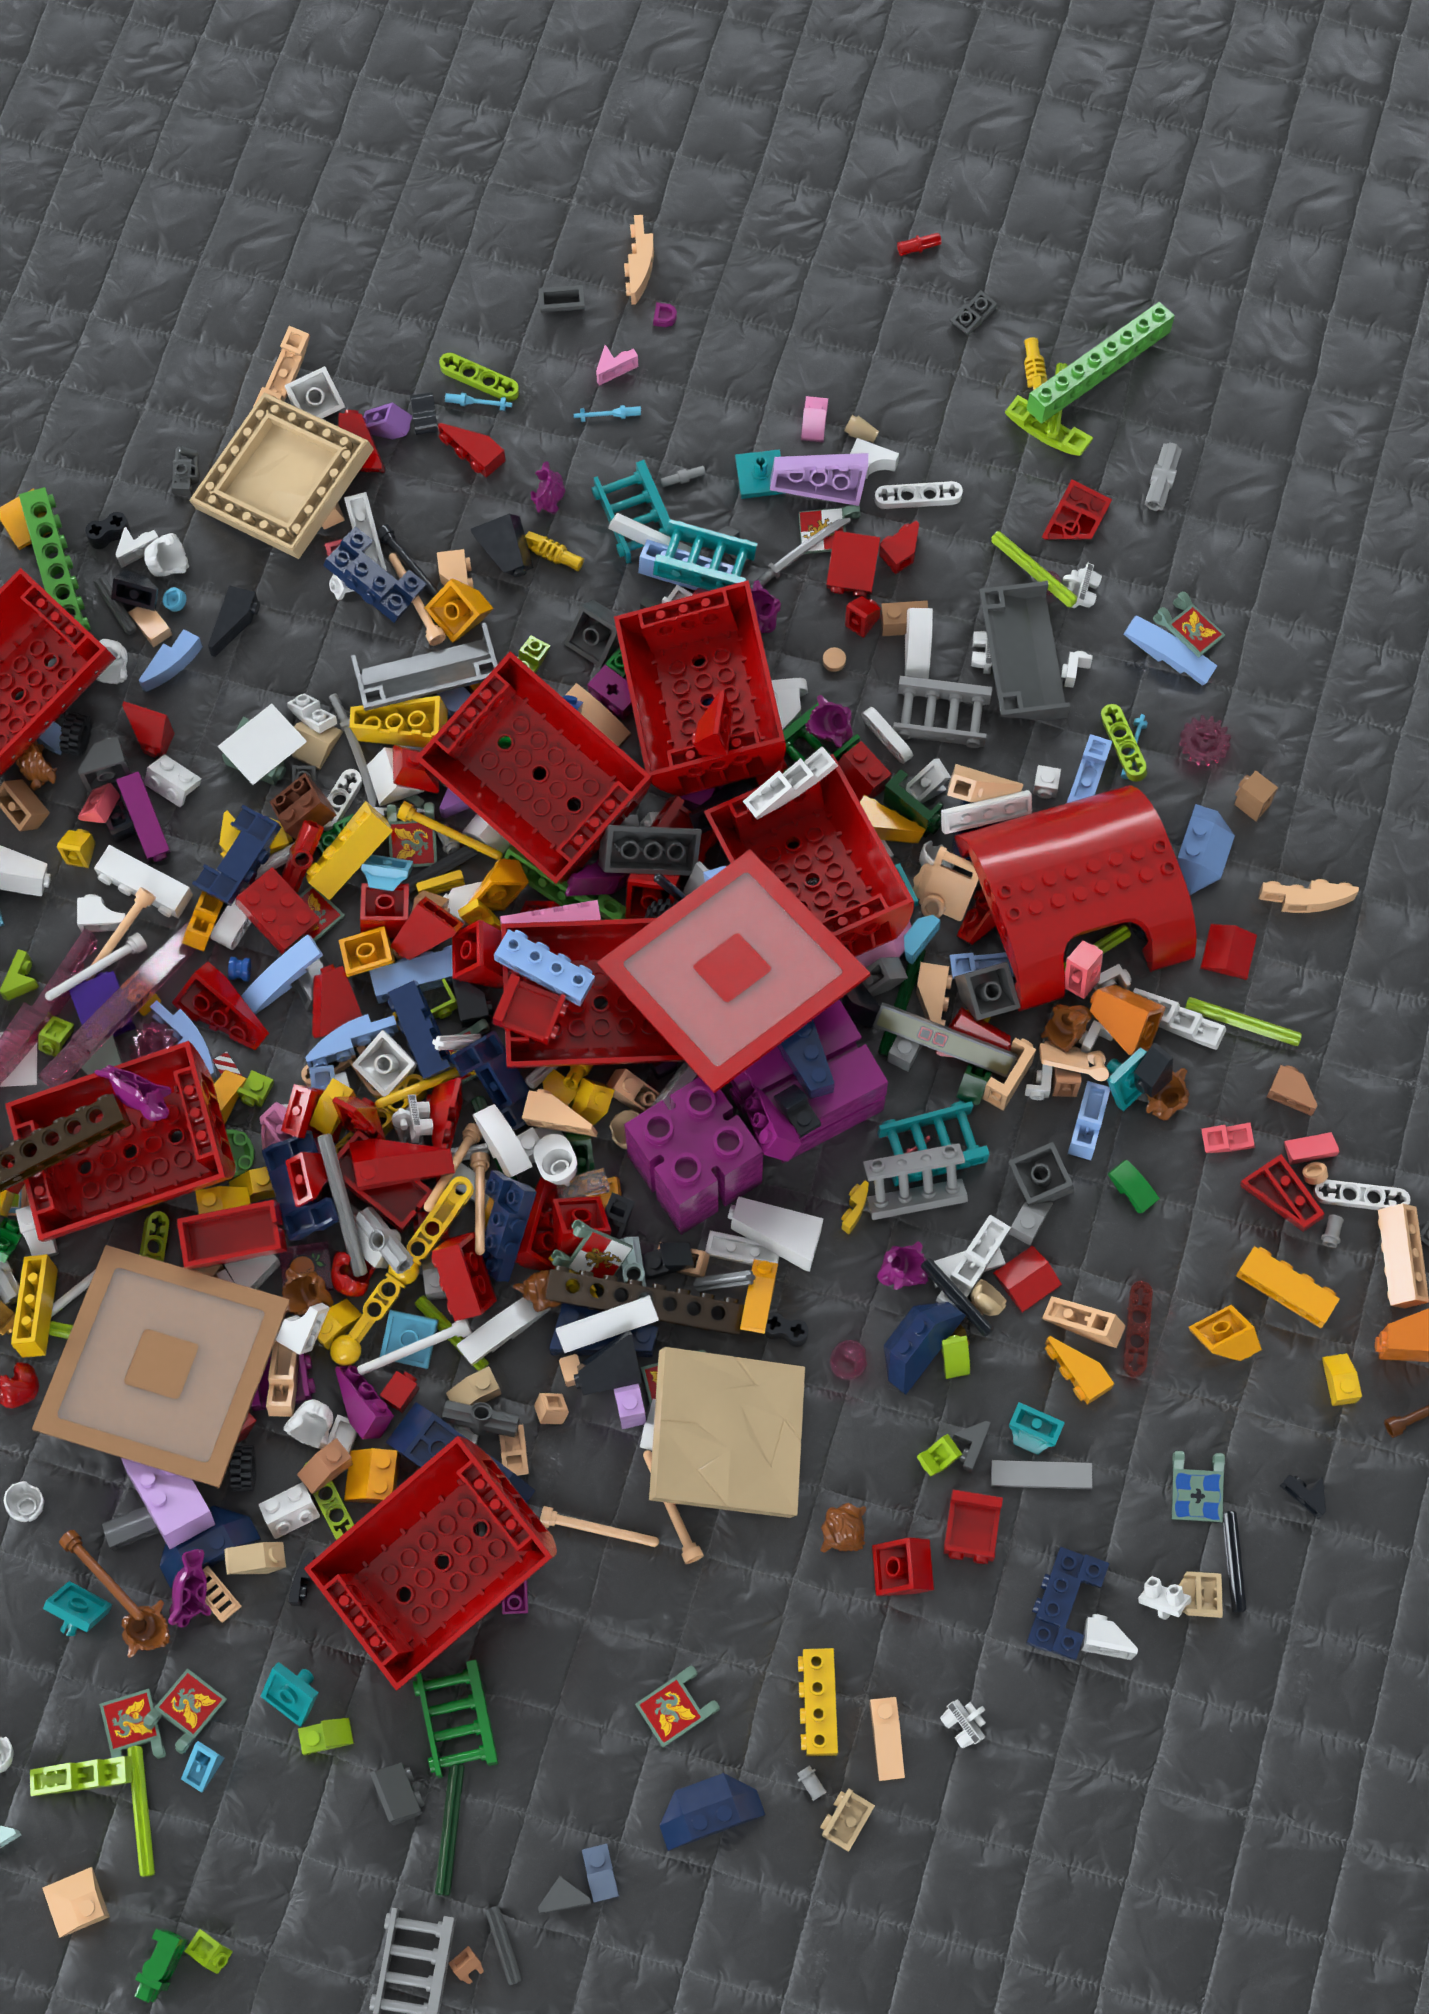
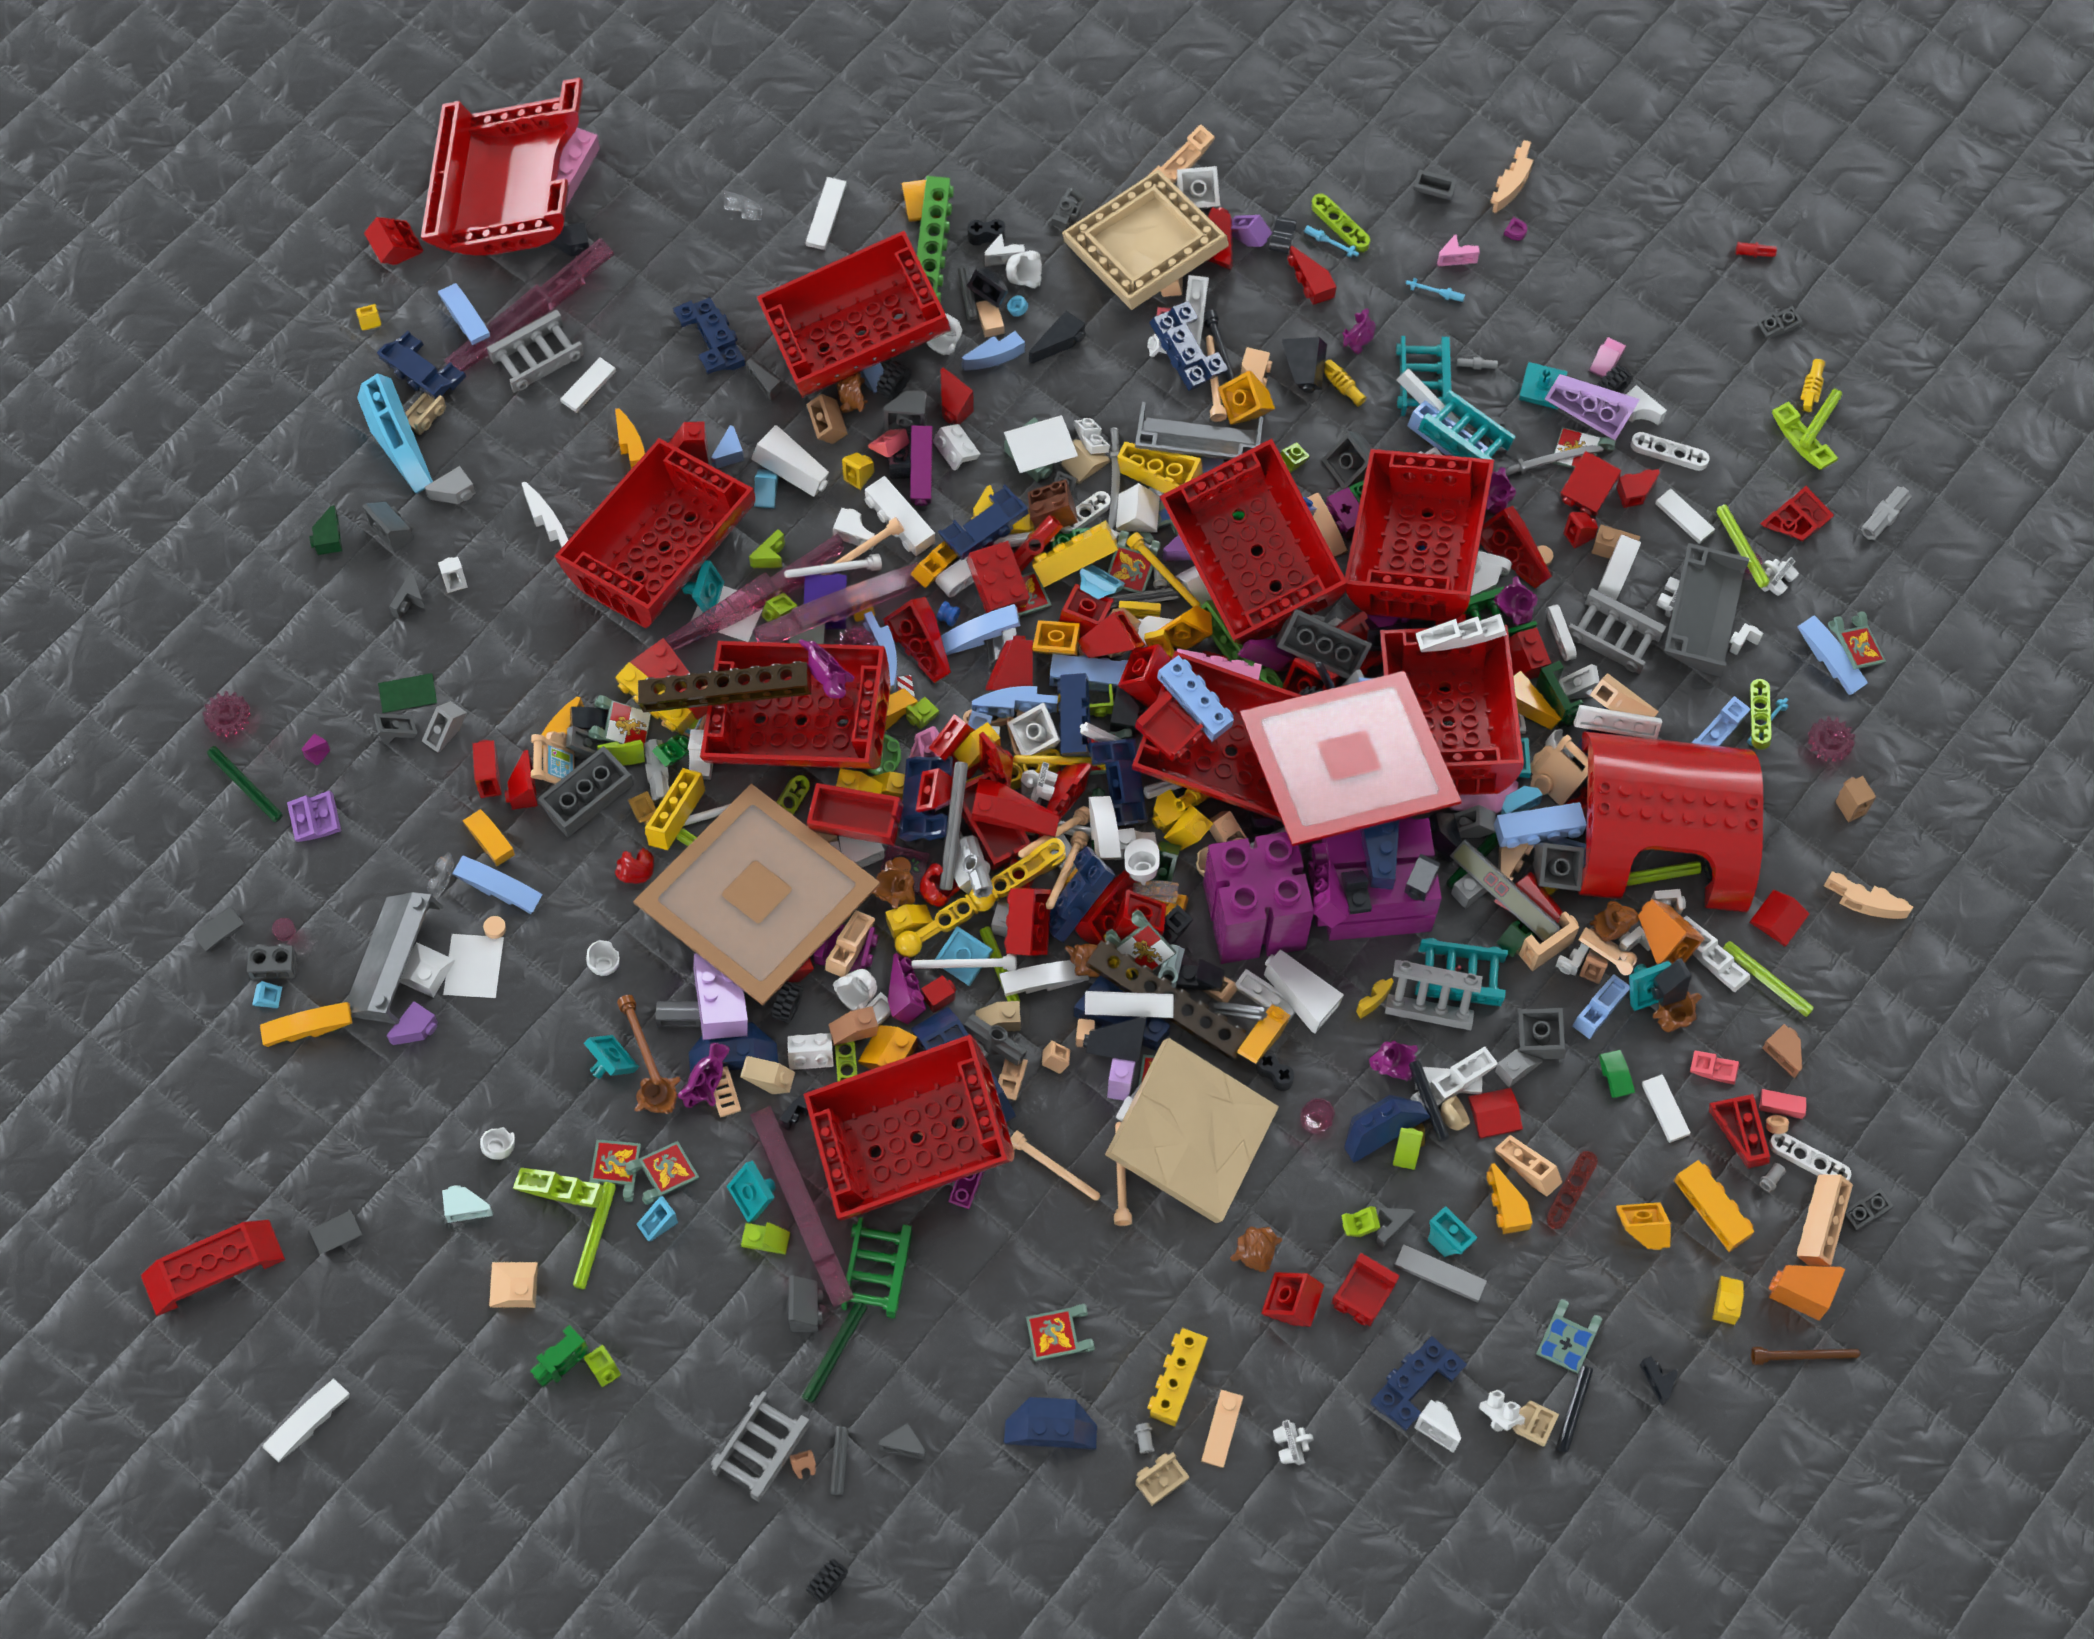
camera: 20 degrees right, 5 degrees down
(301, 1332) = (880, 912): white arch -> none
(350, 1686) = (802, 1206): none -> clear pink slope
(410, 772) = (1153, 511): red slope -> none
(549, 1112) = (1152, 821): light nougat slope -> none
(600, 1873) = (941, 1437): sand blue slope -> none
(714, 728) = (1416, 563): red slope -> none
(795, 655) = (1510, 538): none -> red wedge
(834, 440) = (1616, 379): none -> black tyre
(861, 429) = (1643, 380): tan cone -> none
(861, 1070) = (1422, 878): none -> slope
(951, 955) = (1540, 825): none -> light blue brick
(961, 559) = (1685, 516): none -> white tile
(1046, 782) = (1681, 721): white bracket -> none
(1083, 969) = (1646, 878): coral brick -> none
(1100, 362) = (1870, 399): bright green brick -> none
(1197, 1202) = (1665, 1108): none -> white tile
(1204, 848) = (1792, 826): medium blue wedge -> none

